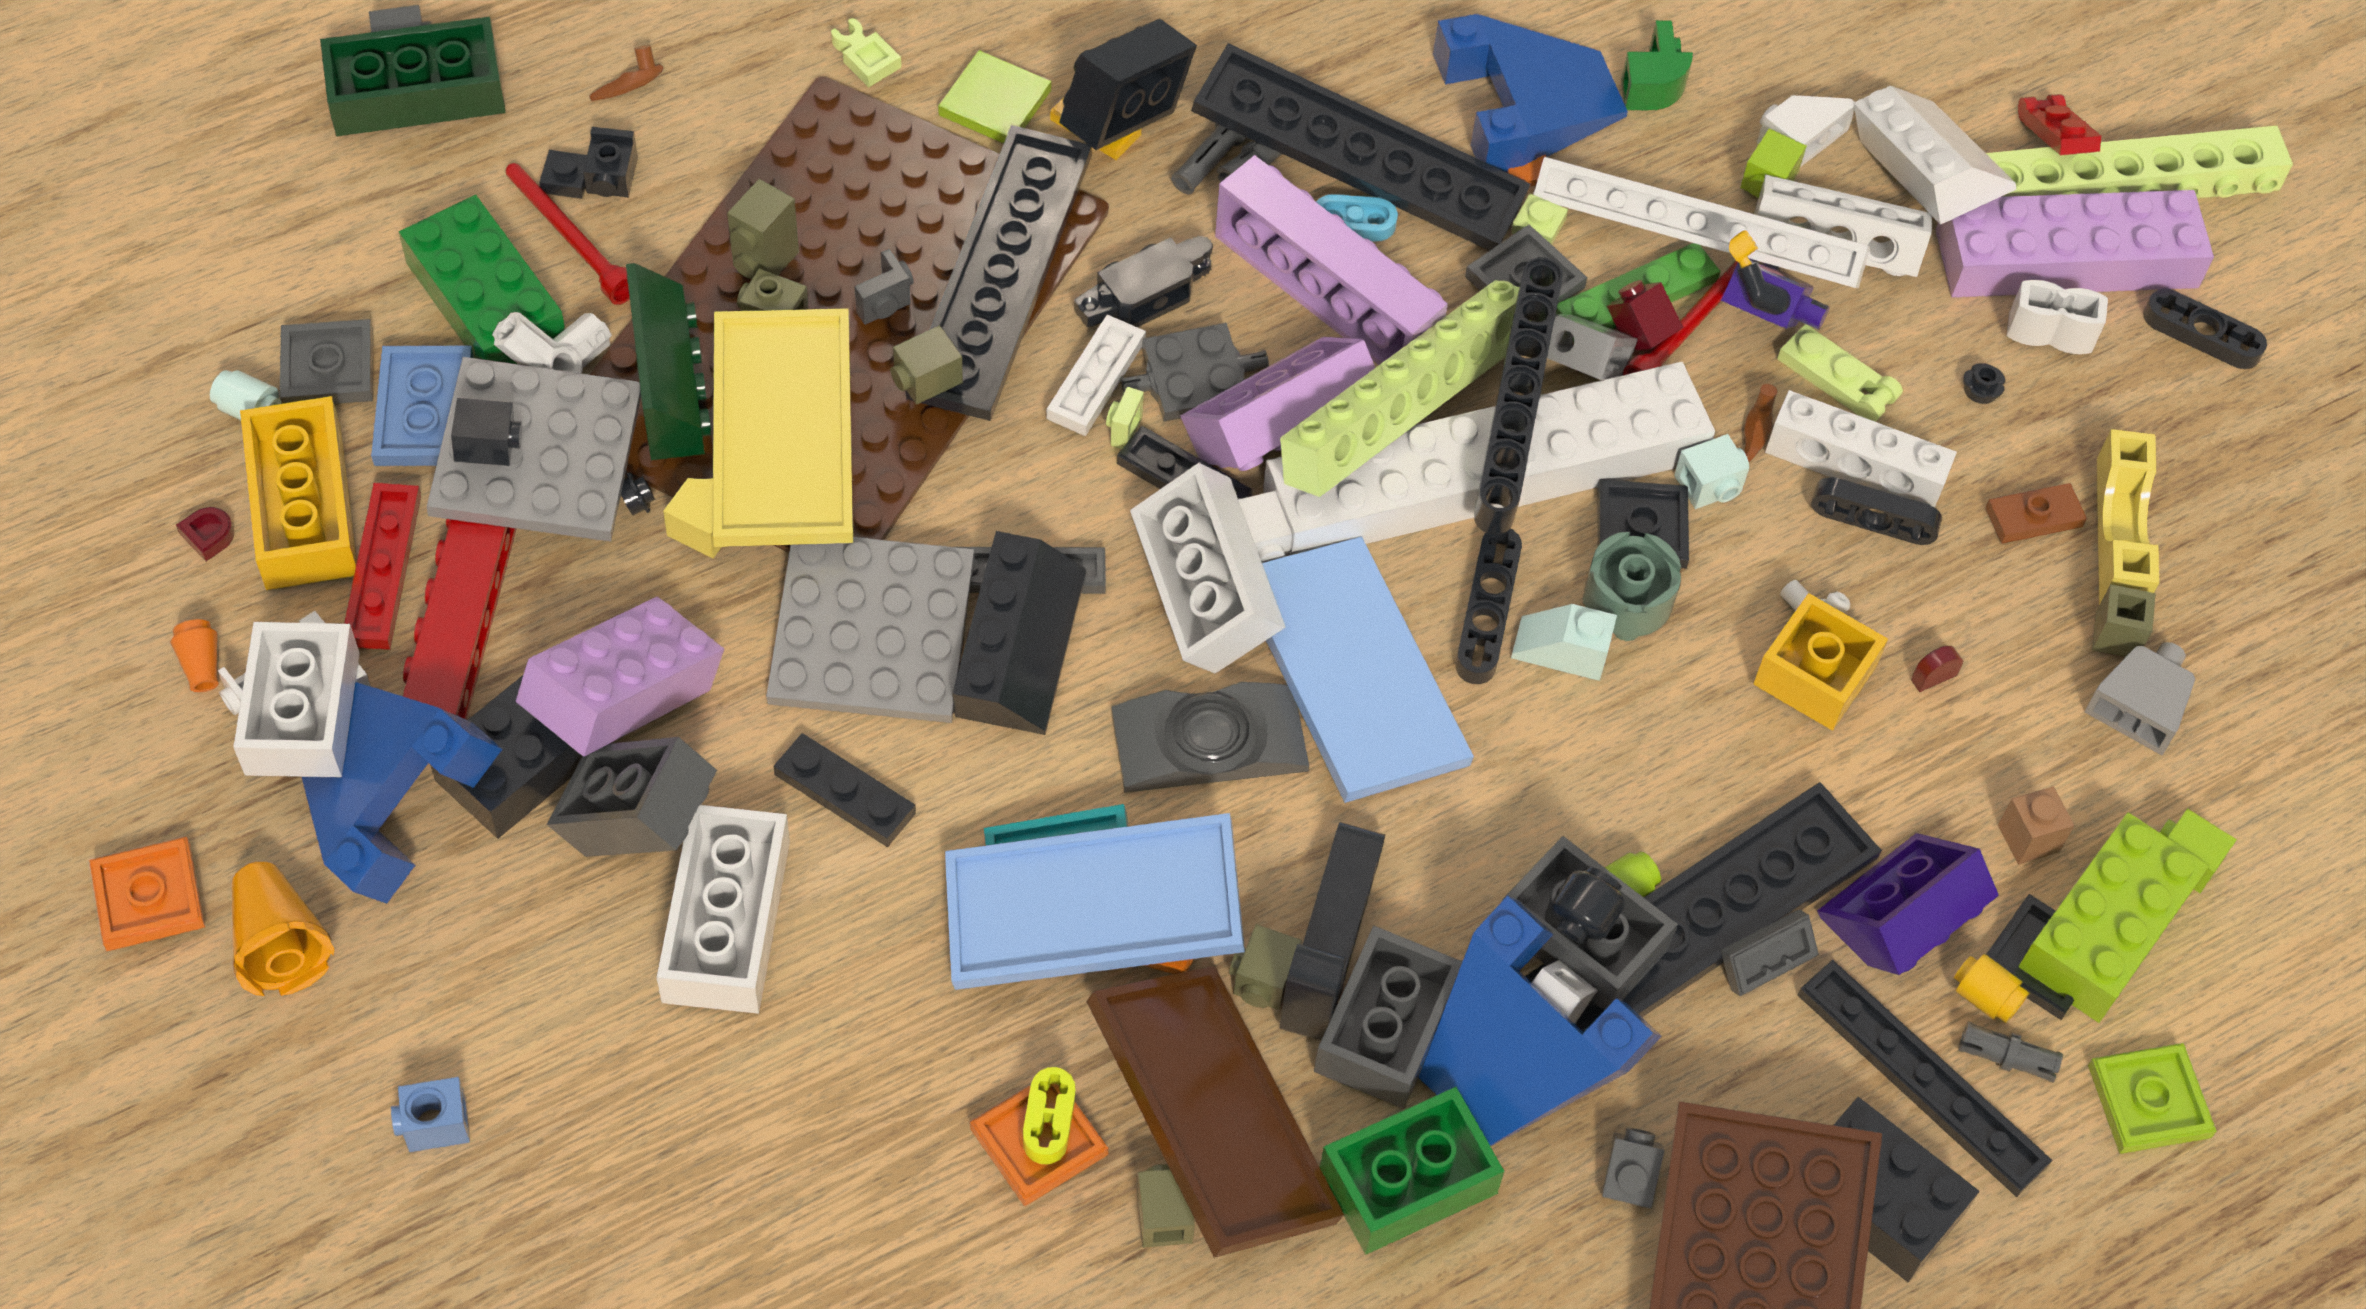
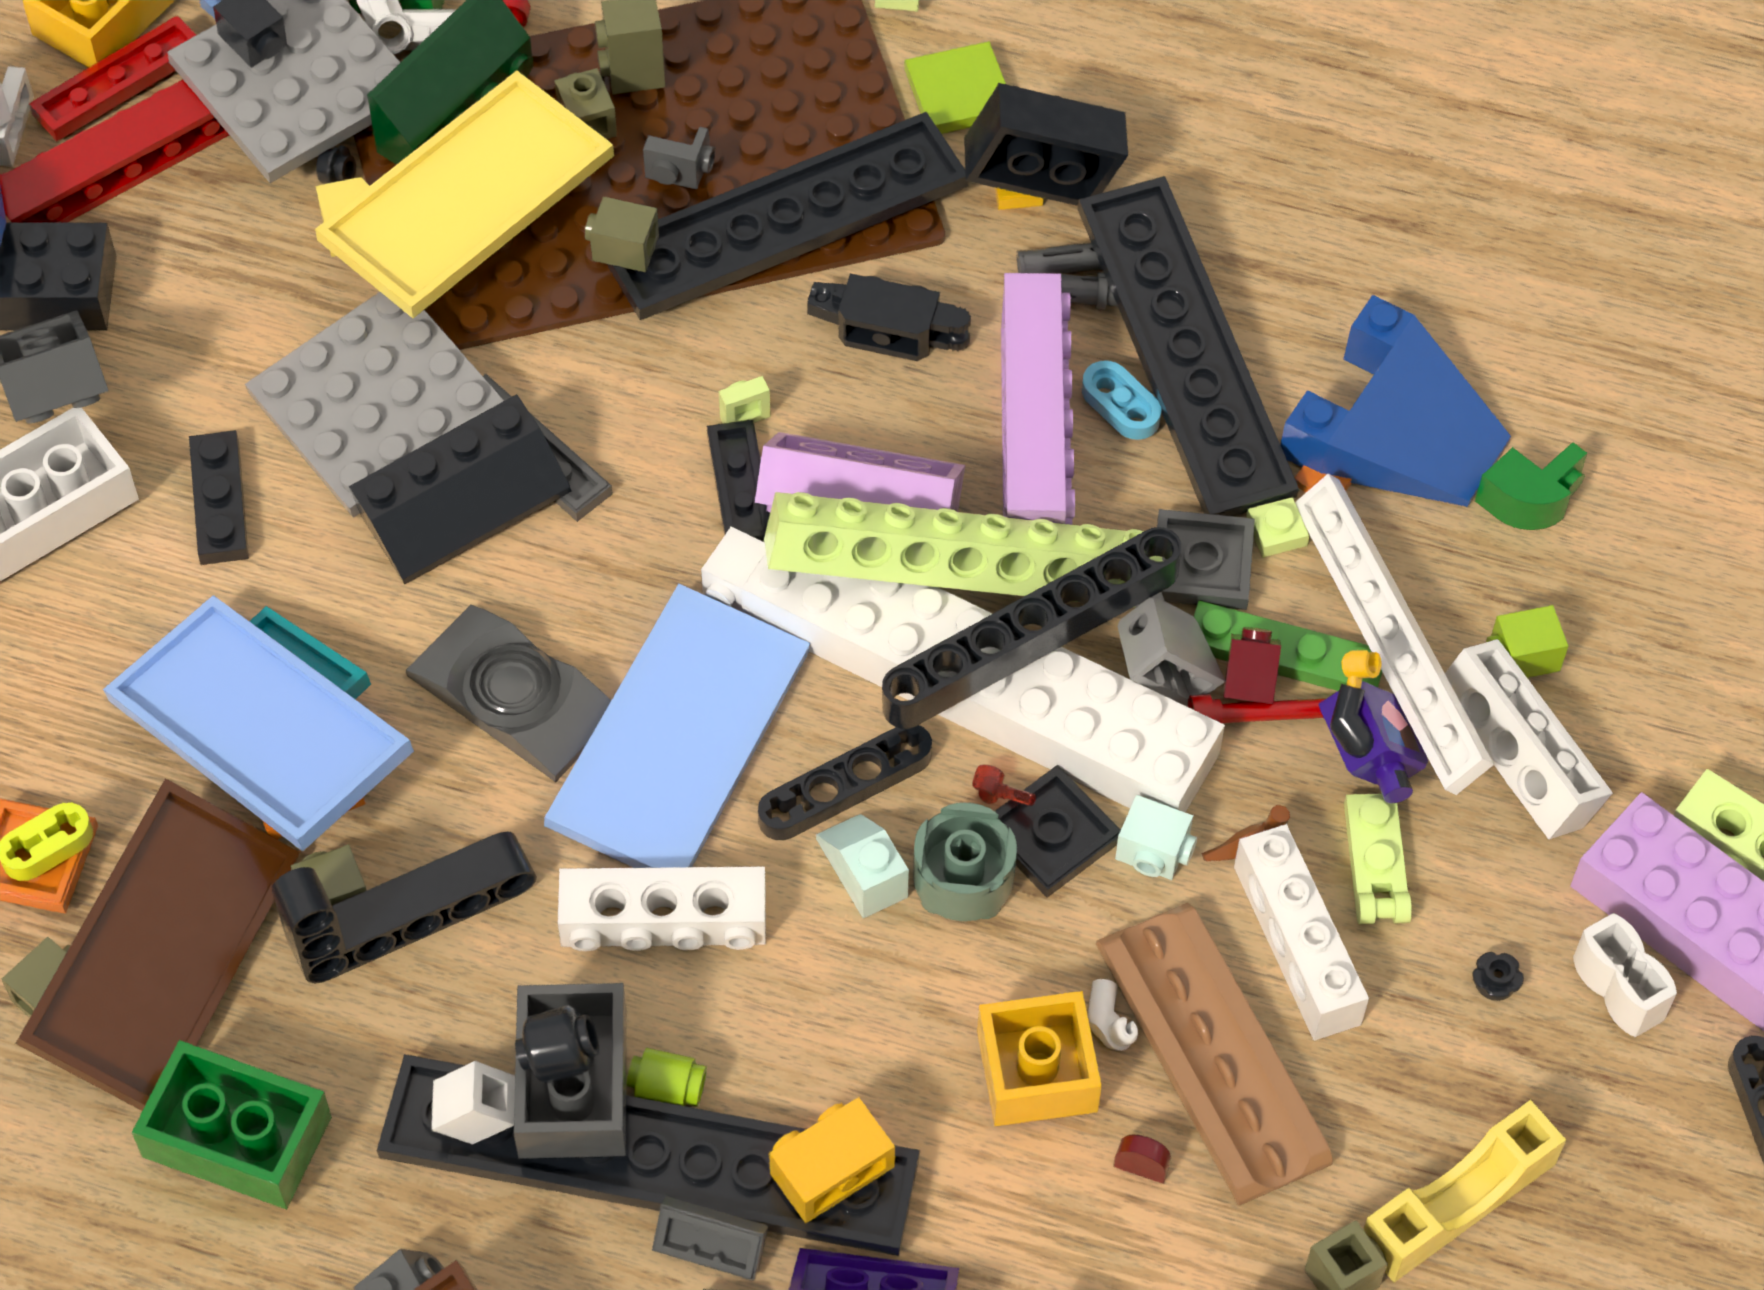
camera: 50 degrees right, 0 degrees up
(619, 675) = (144, 275): lavender brick -> none
(1095, 375) = (766, 353): white plate -> none
(1192, 368) = (847, 408): dark grey plate -> none
(1207, 568) = (645, 558): white brick -> none
(1387, 1017) = (360, 1002): dark grey brick -> none
(1511, 1045) = (400, 1097): blue wedge -> none
(1525, 730) = (642, 890): none -> white brick
(1579, 530) = (991, 787): none -> clear red hand
(1791, 831) = (831, 1158): none -> yellow brick
(1809, 121) = (1609, 637): white slope -> none
(1895, 567) = (1215, 1053): none -> medium nougat plate
(1901, 518) = (1258, 989): black beam -> none
(1928, 153) = (1677, 741): white slope -> none
(2036, 513) = (1403, 1119): dark orange plate -> none

